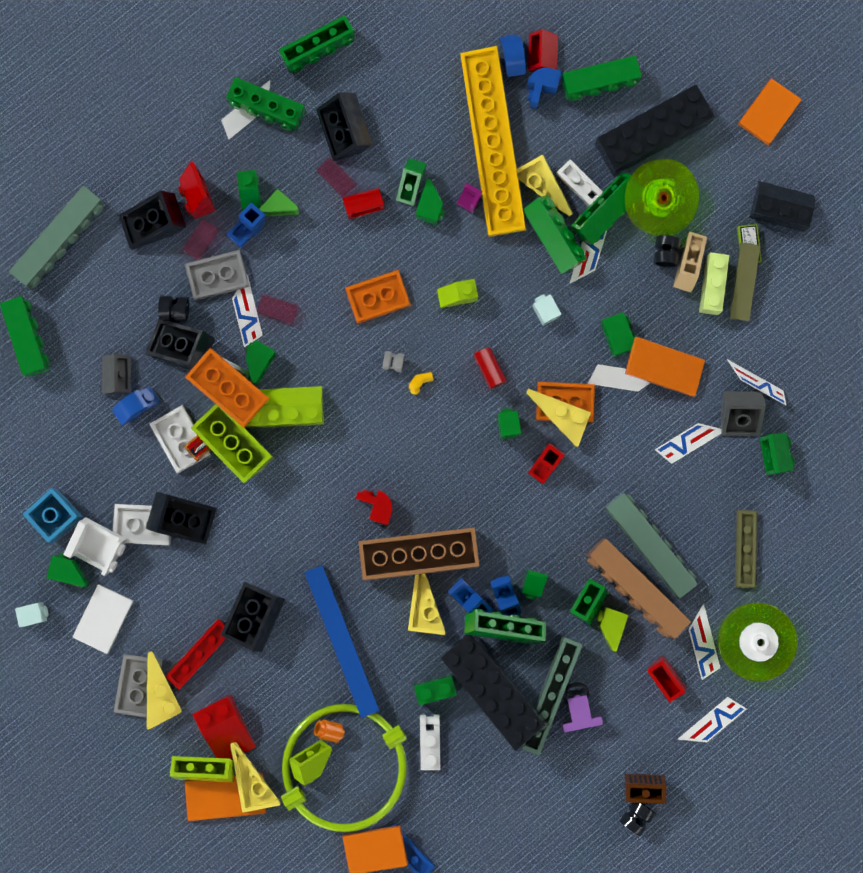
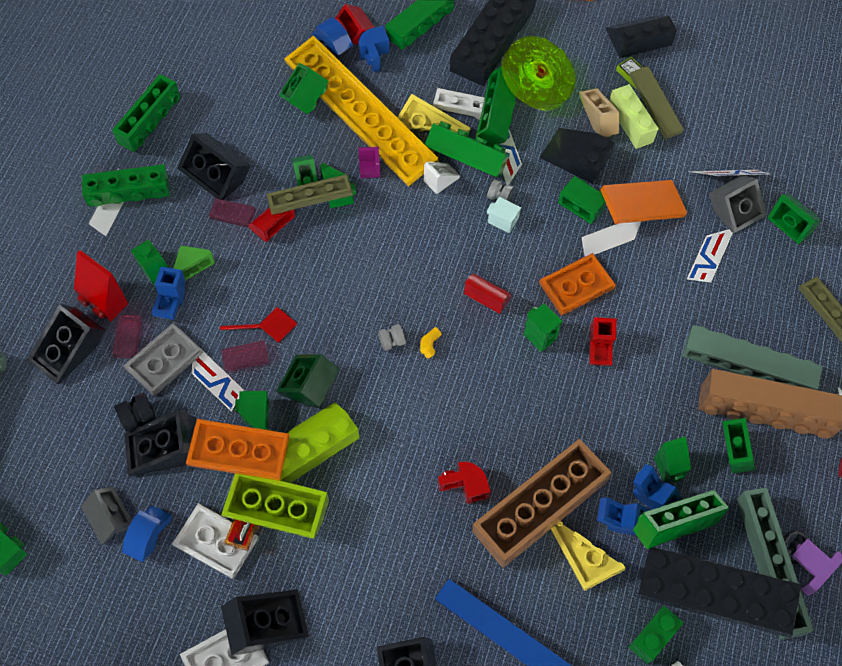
camera: 35 degrees left, 20 degrees down
(311, 358) = (308, 379): none -> dark green slope
(315, 296) = (276, 325): none -> red piece
(377, 296) = (337, 291): orange tile -> none
(401, 203) = (309, 194): none -> olive tile
(456, 96) = (304, 88): none -> green slope
(458, 293) = (413, 244): lime slope -> none
(520, 243) = (439, 175): none -> white slope
(554, 284) = (499, 190): none -> light grey wheel
(566, 417) = (590, 293): light yellow wing -> none
(612, 626) = (776, 458): lime slope -> none
(645, 289) = (579, 152): none -> black slope
(667, 257) = (573, 112): black wheel -> none

